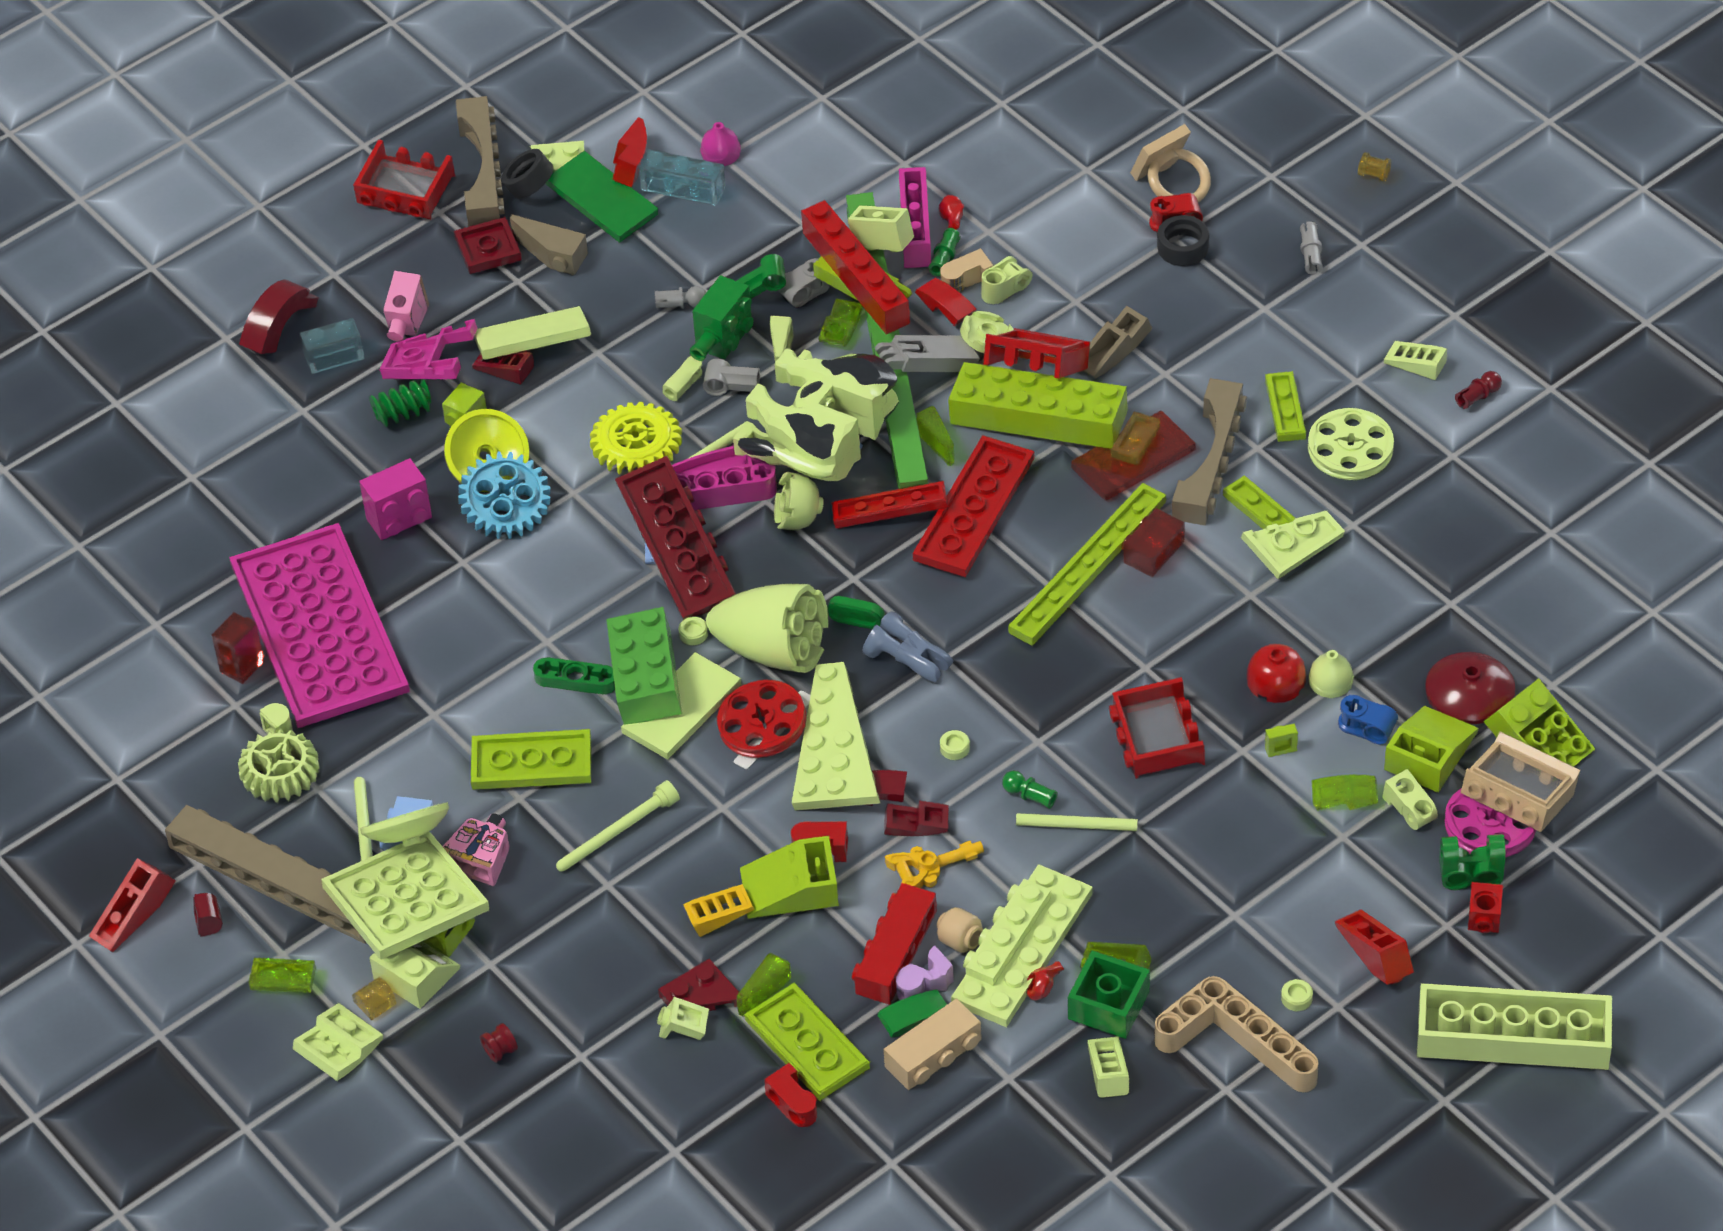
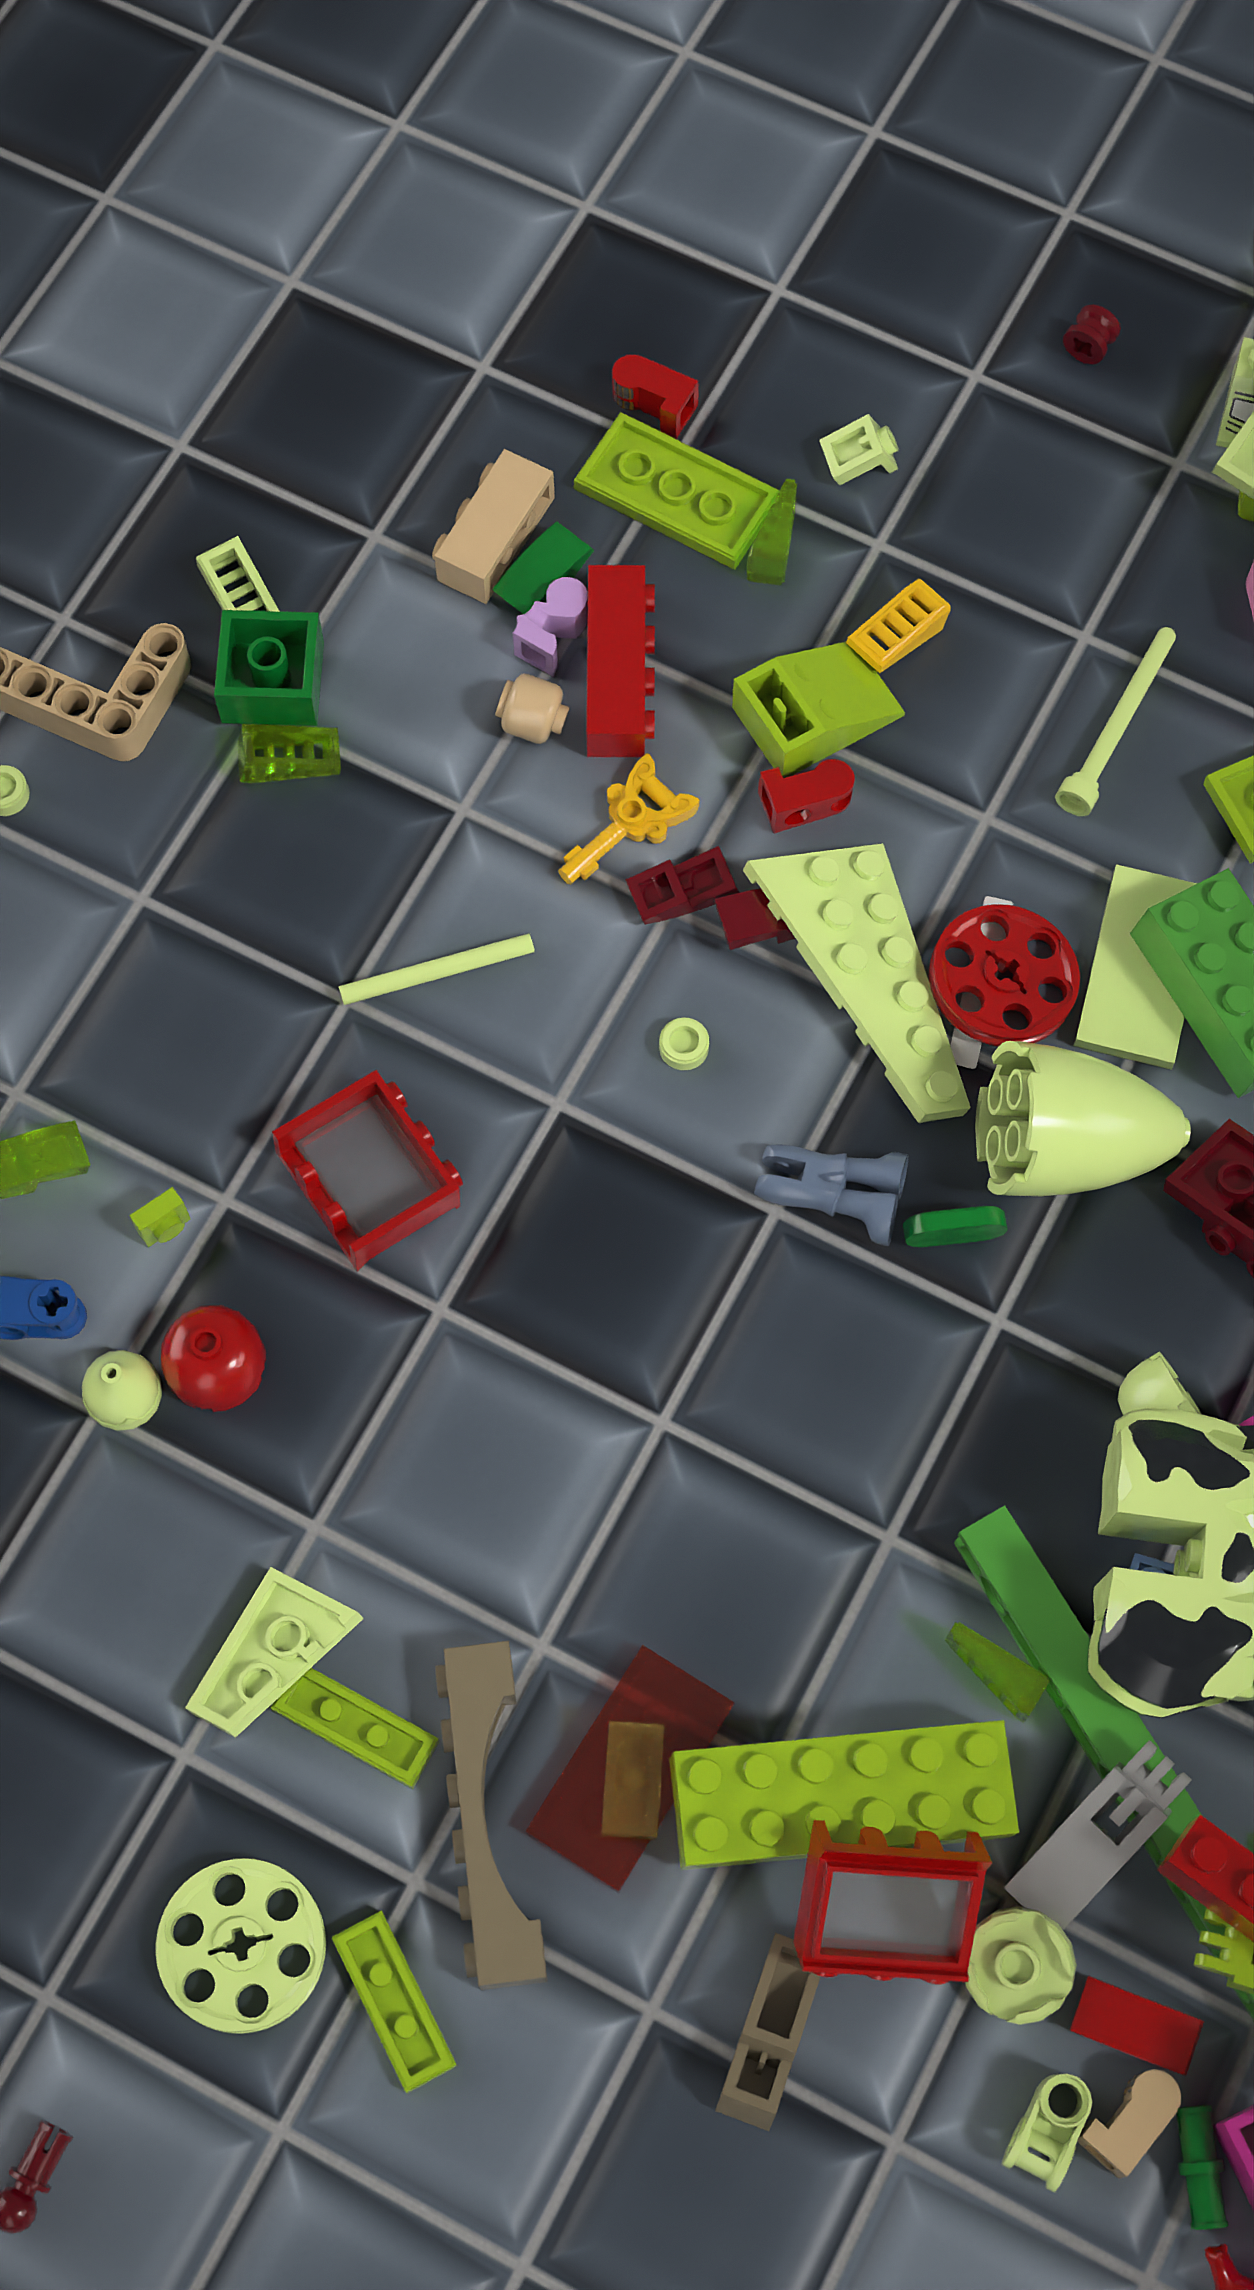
camera: 155 degrees right, 20 degrees up
(693, 631) = (1205, 1111): yellowish green tile -> none
(702, 986) = (861, 512): dark red wing -> none
(889, 504) = (1005, 1477): red tile -> none
(973, 506) = (862, 1538): red plate -> none
(1015, 782) = (557, 996): green pin -> none
(1020, 942) = (437, 738): yellowish green plate -> none
(1043, 980) = (383, 680): red animal -> none
(1085, 565) = (611, 1482): lime plate -> none
(1153, 542) = (516, 1559): clear red brick -> none
(1429, 365) = (129, 2216): yellowish green slope -> none

